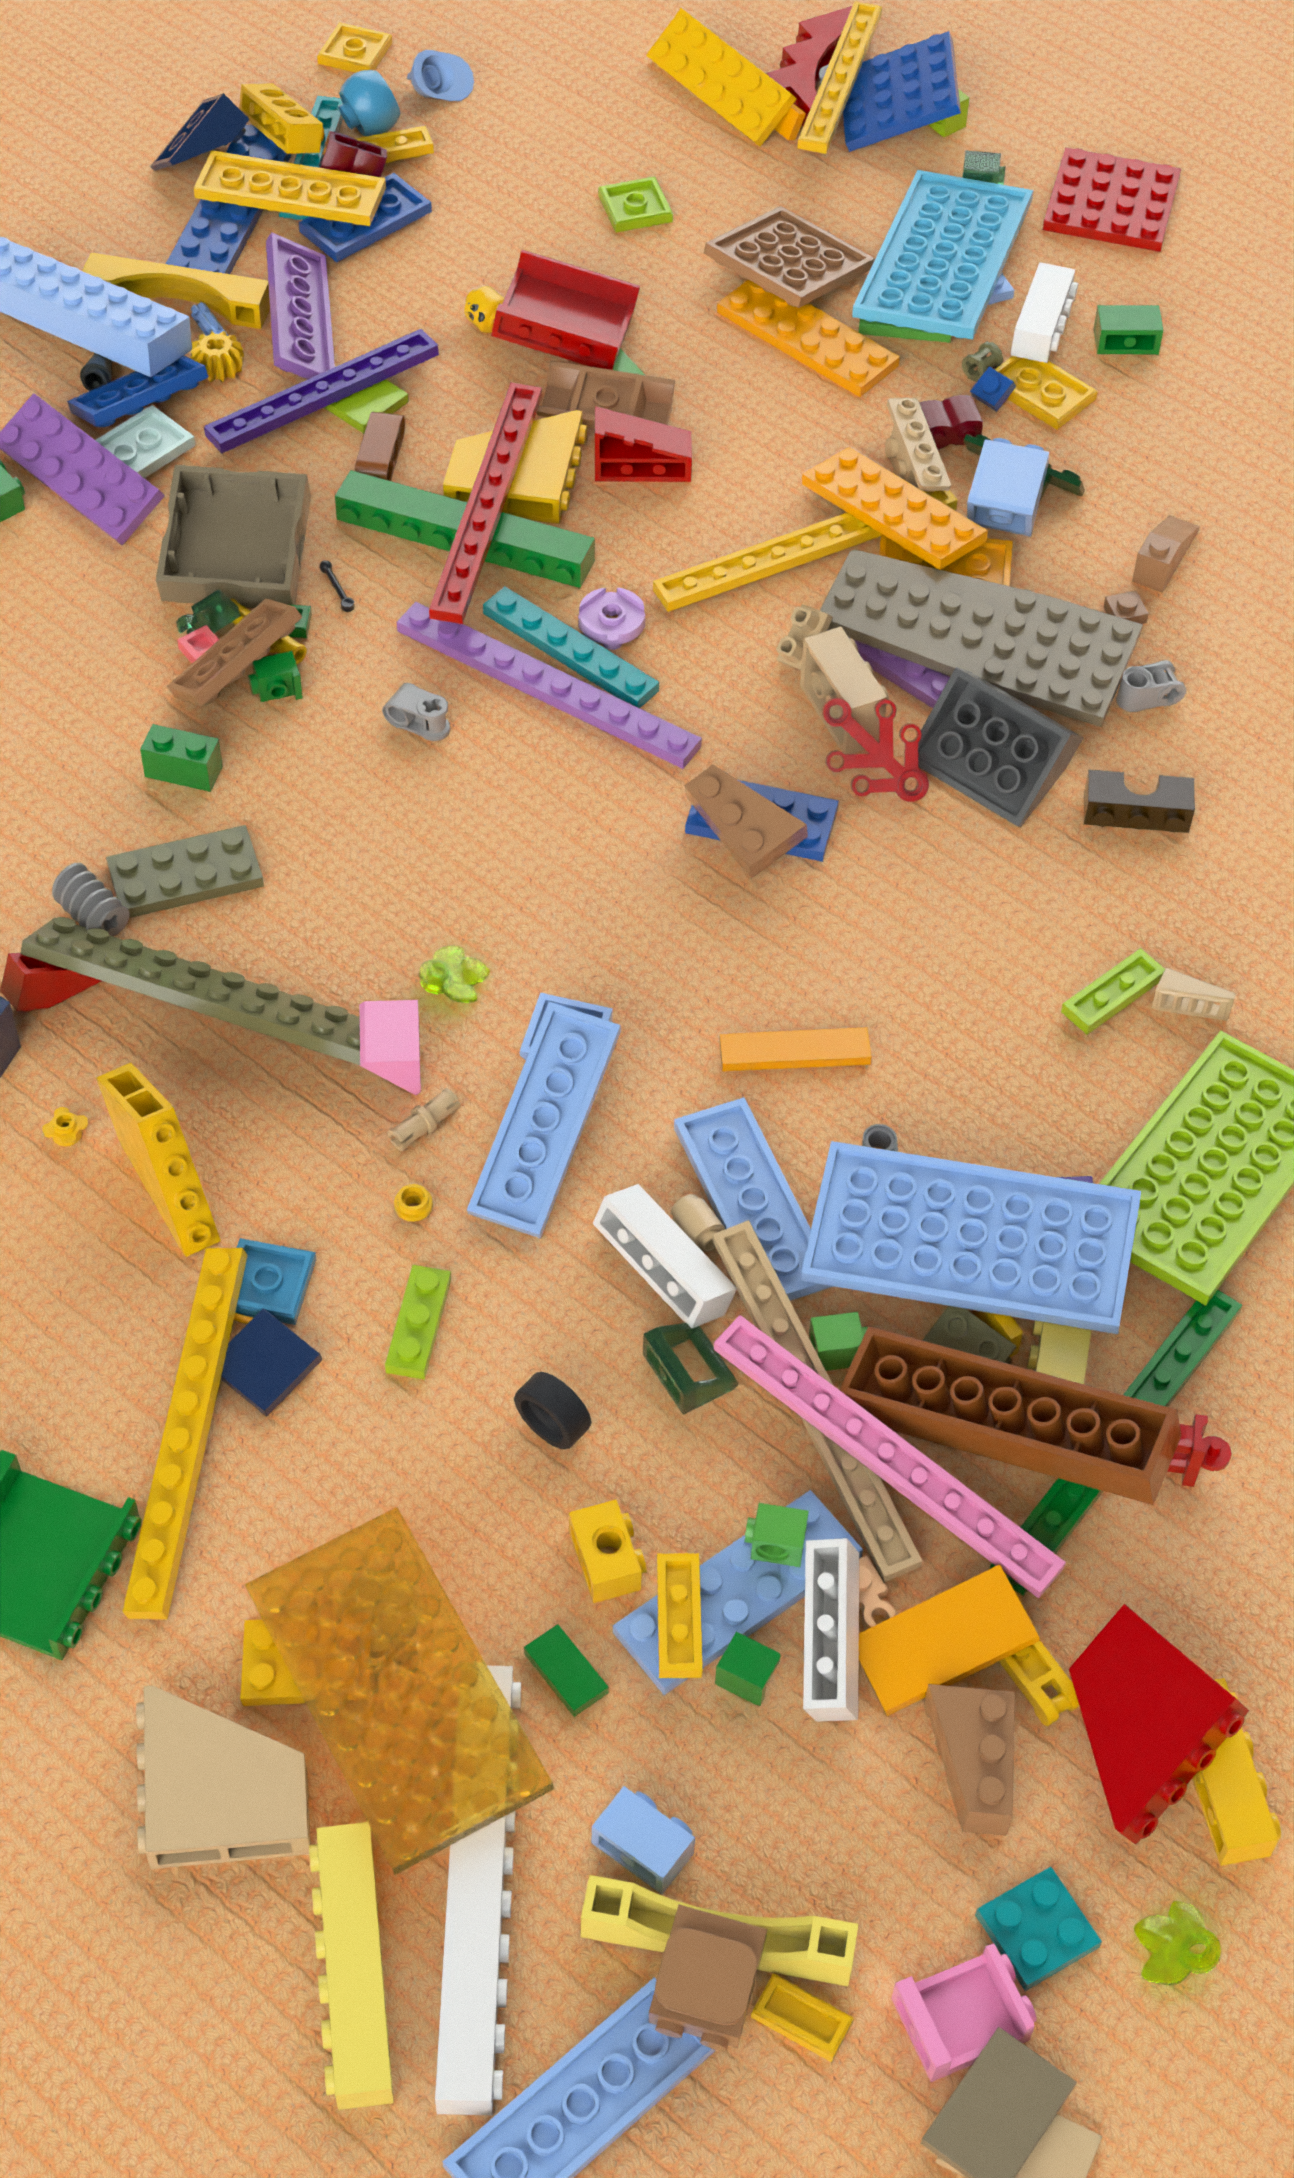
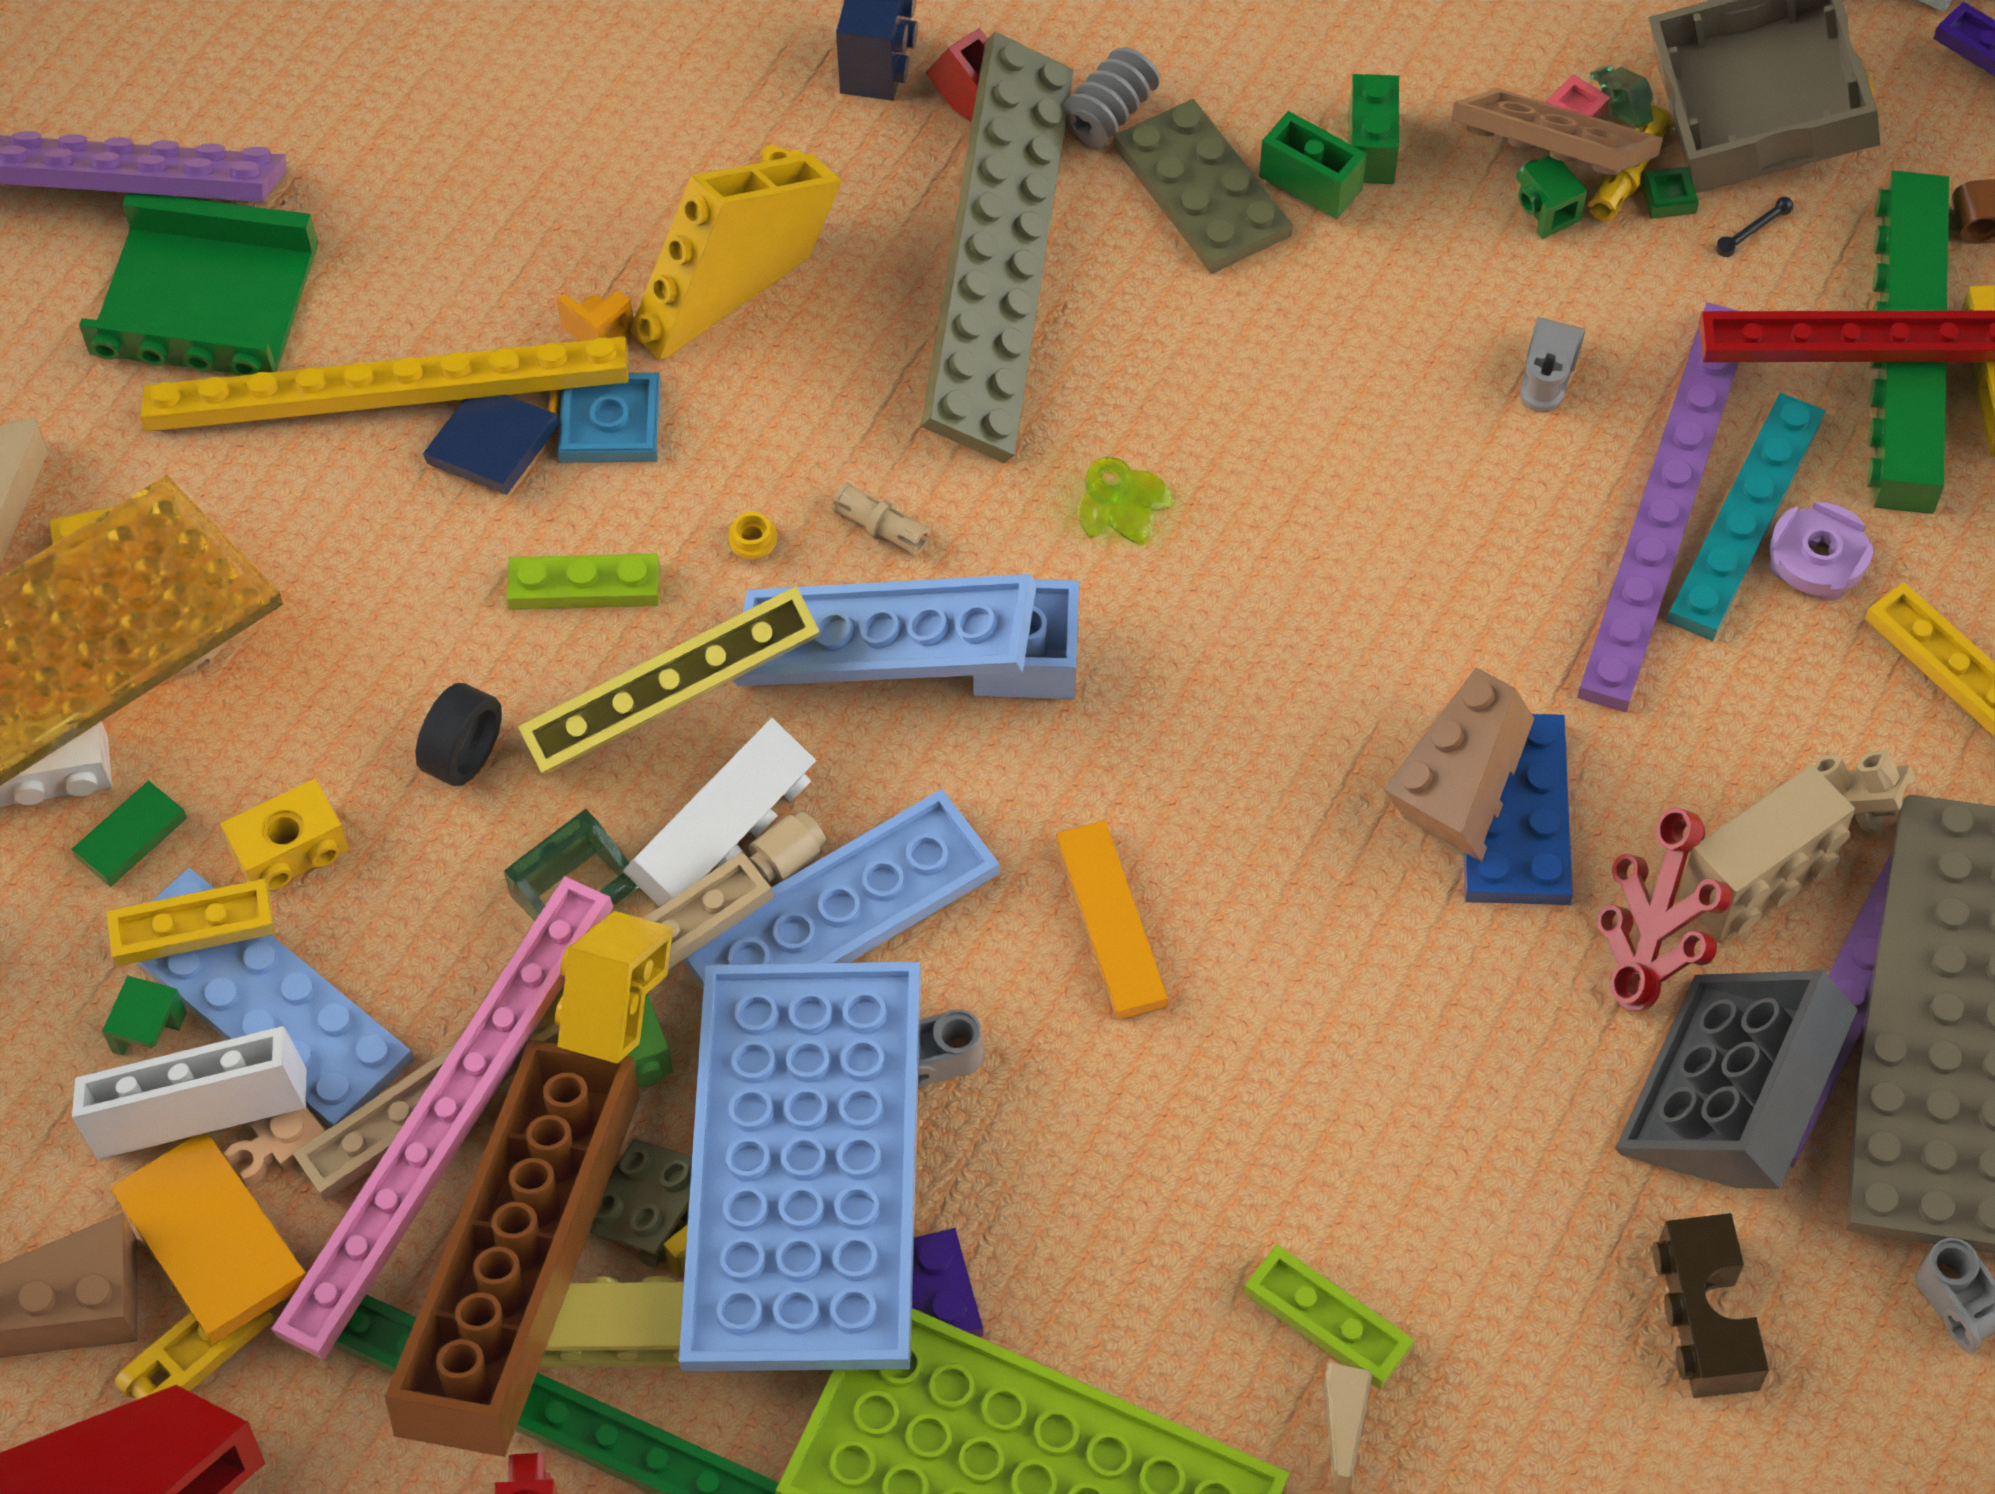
camera: 80 degrees right, 5 degrees up
(173, 1274) = (596, 316): none -> light orange panel
(205, 795) = (1312, 164): none -> green brick
(391, 1041) = (967, 449): bright pink slope -> none
(552, 1258) = (669, 681): none -> light yellow brick
(777, 1534) = (314, 1008): bright green brick -> none
(822, 1315) = (607, 985): none -> yellow brick

